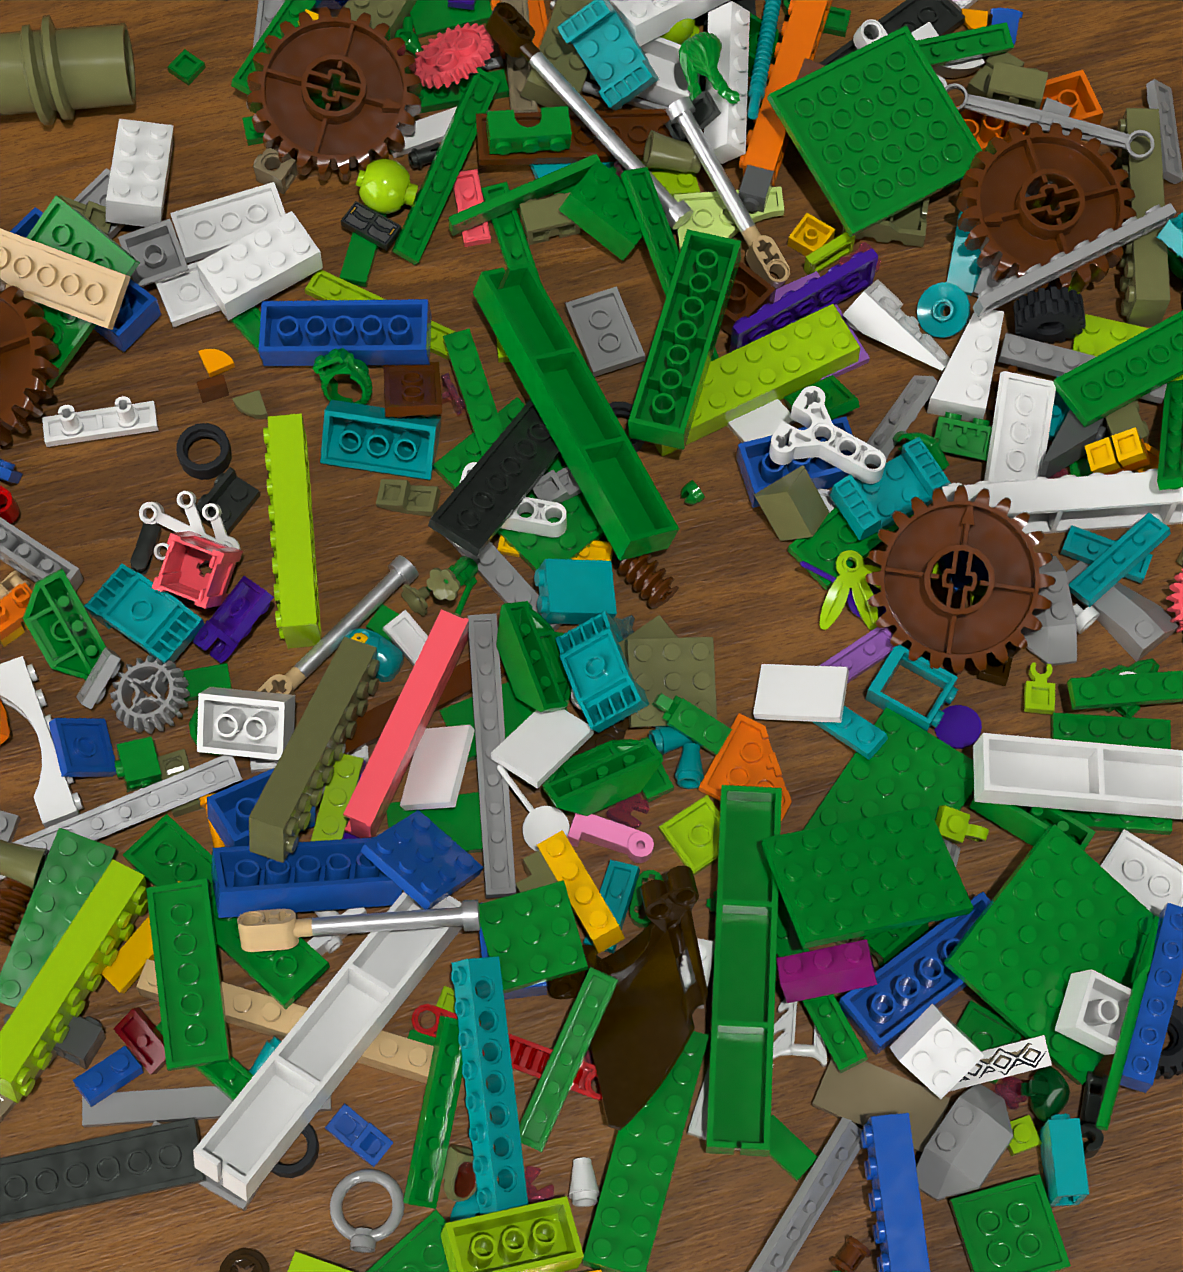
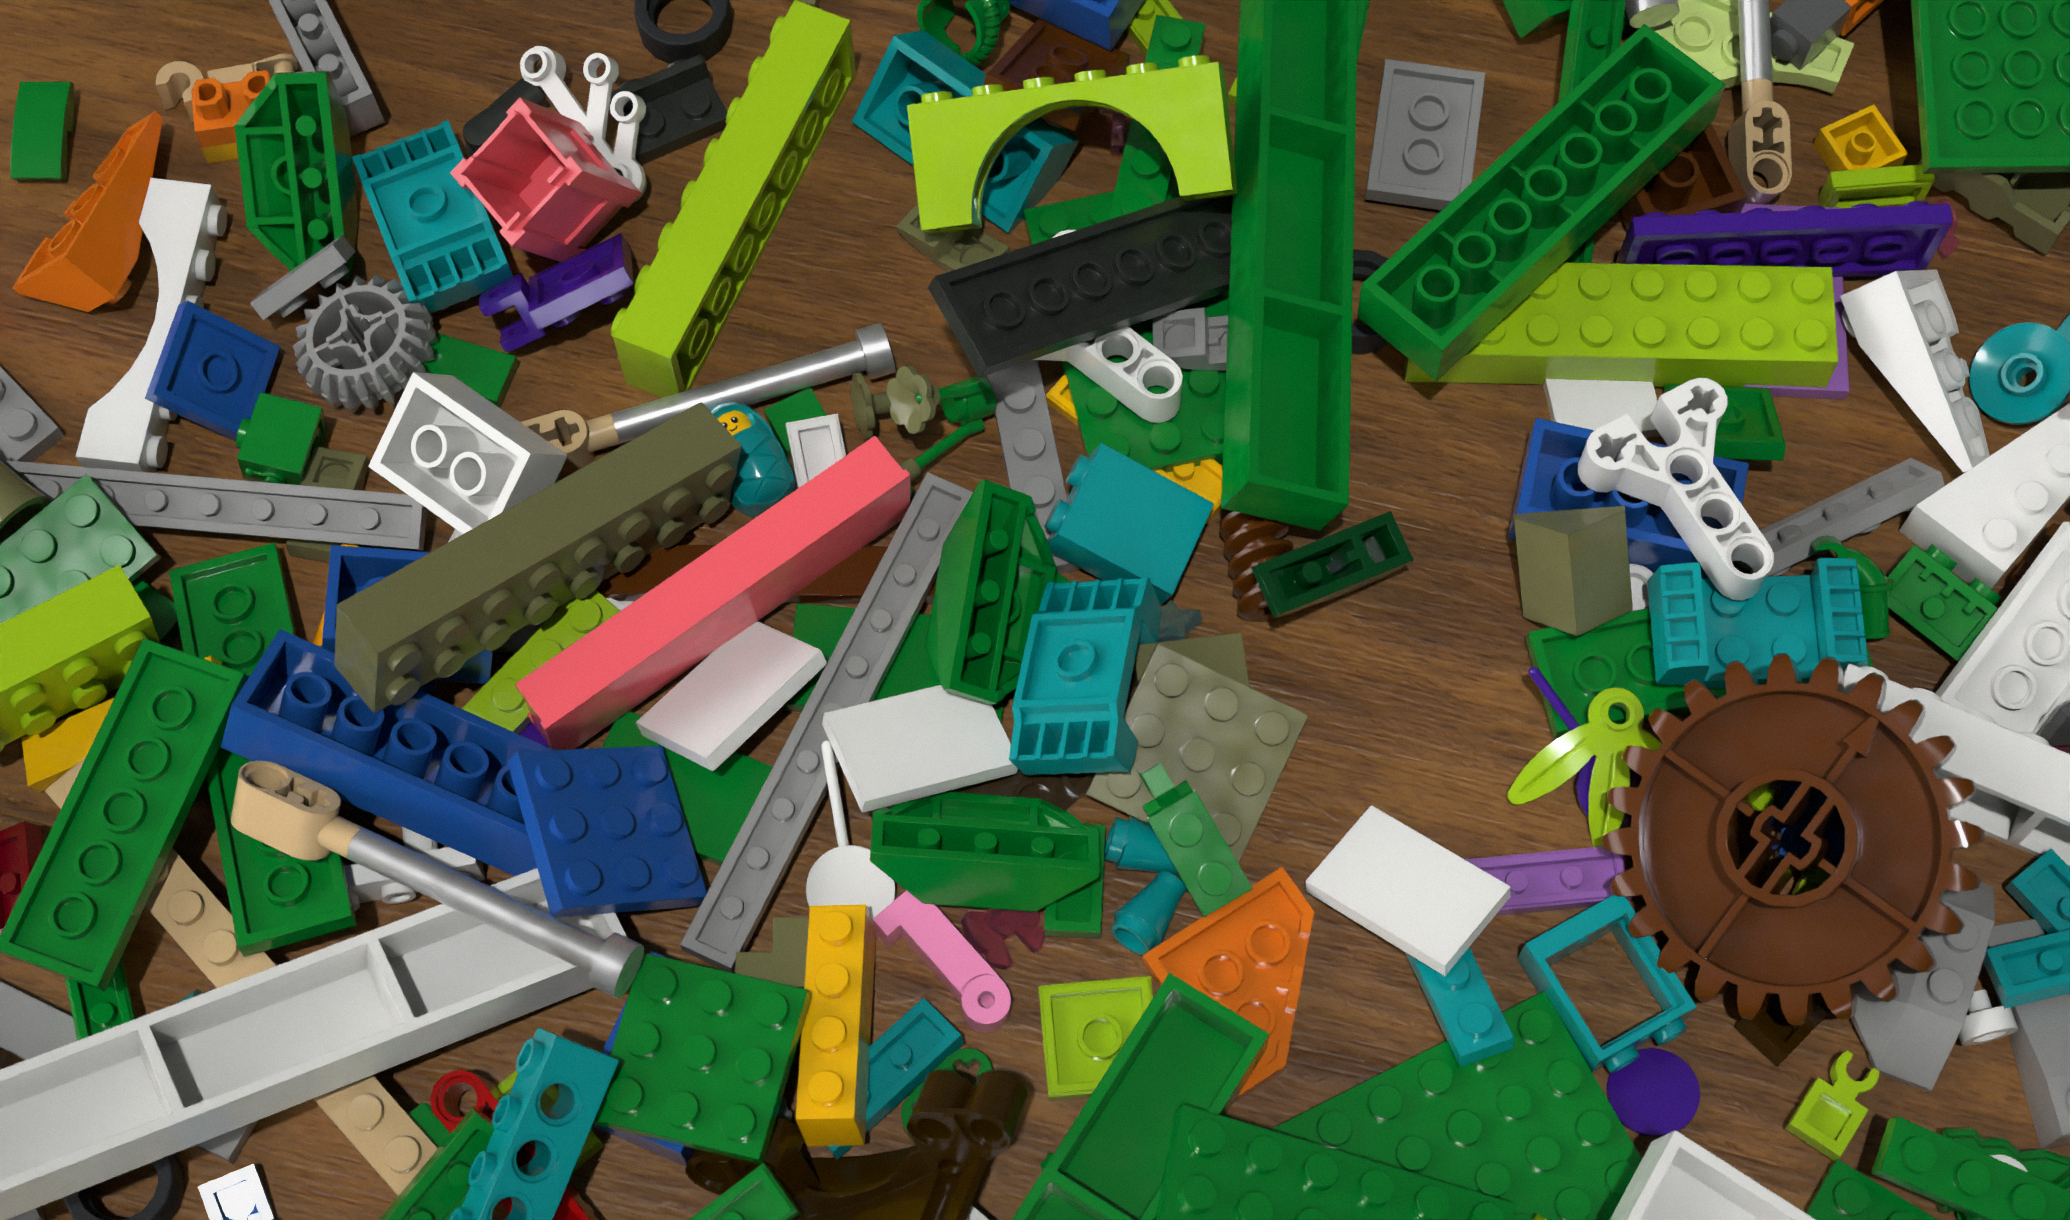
camera: 30 degrees right, 0 degrees up
(391, 444) = (962, 137): none -> lime arch
(684, 560) = (1333, 565): none -> dark green slope
(692, 493) = (1416, 464): green hinge -> none

